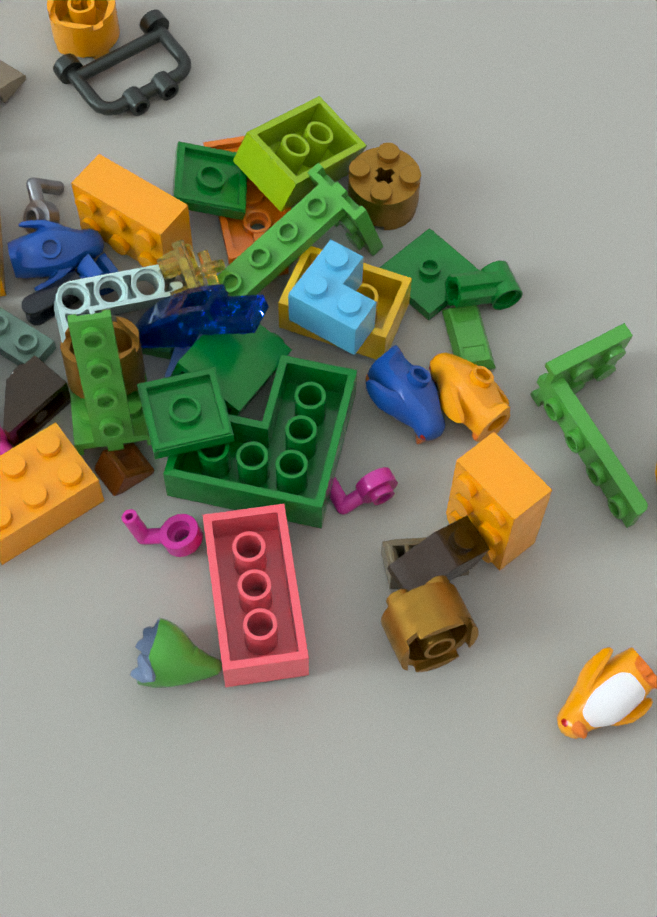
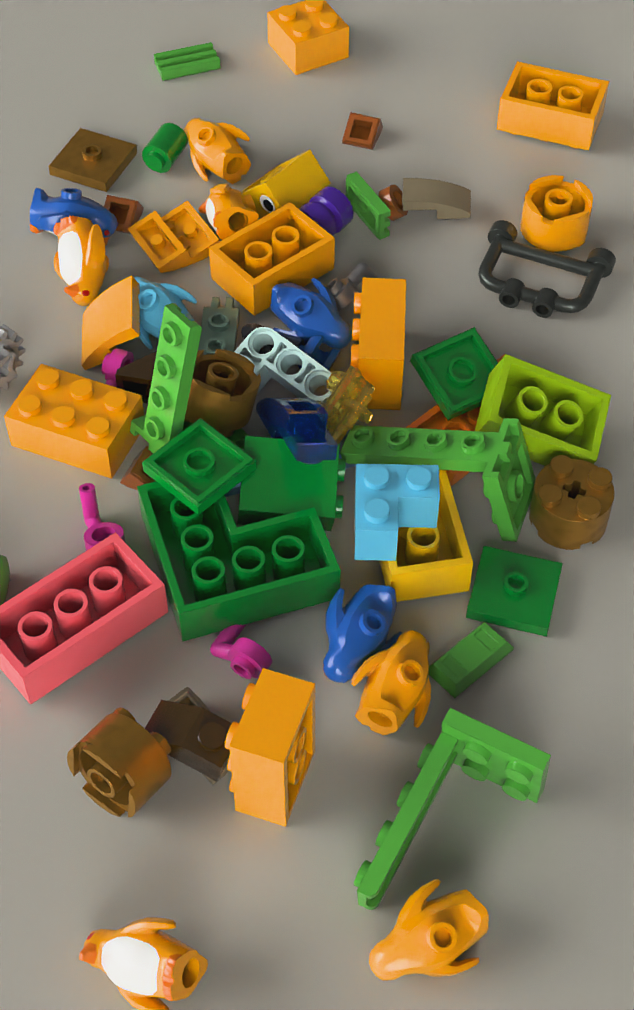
camera: 60 degrees right, 10 degrees down
(491, 285) = (538, 644): green piece -> none

